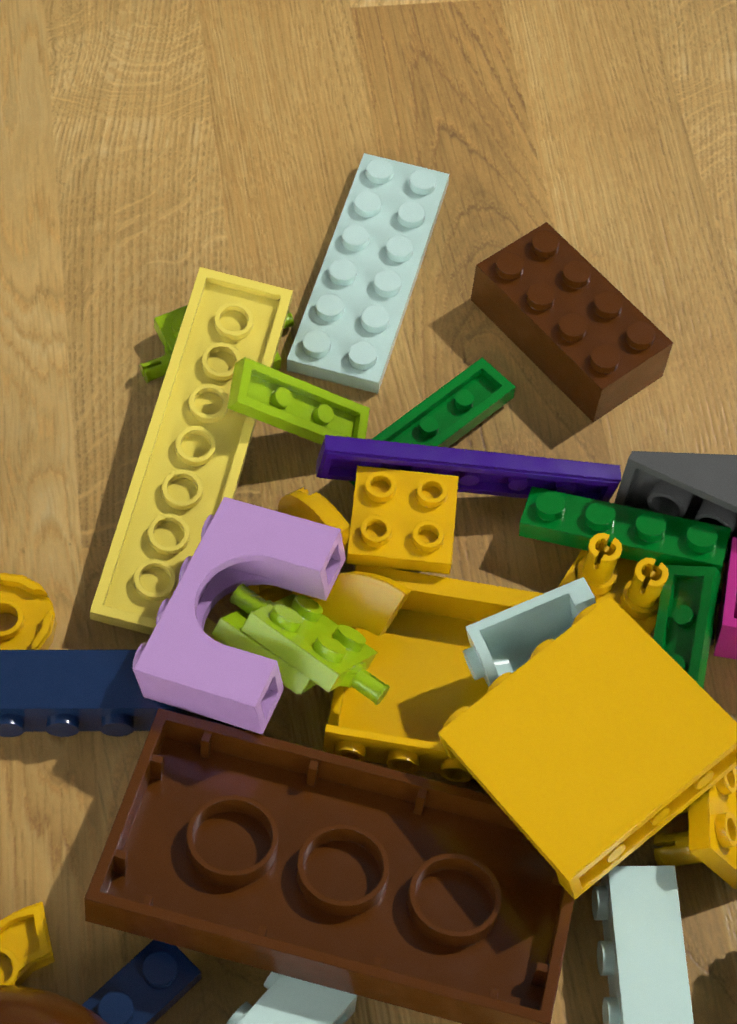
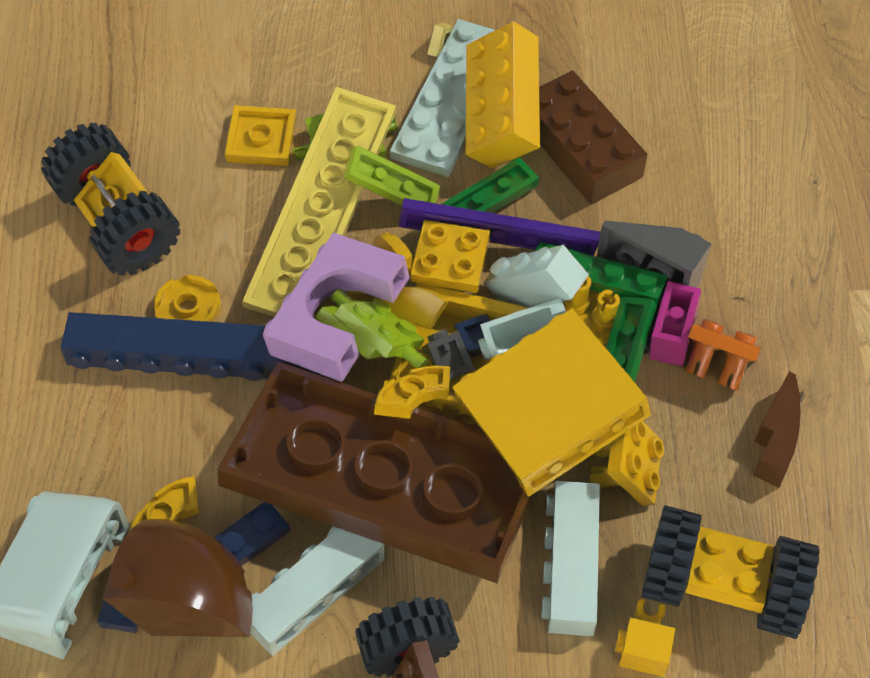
camera: 10 degrees right, 0 degrees up
(88, 347) = (261, 135): none -> yellow tile
(341, 177) = (440, 33): none -> light yellow tile
(368, 740) = (403, 395): none -> yellow tile
(415, 675) = (448, 351): none -> dark grey bracket
(448, 638) = (471, 332): none -> dark blue plate
(450, 267) = (502, 95): none -> yellow brick
(540, 546) = (536, 277): none -> light aqua brick

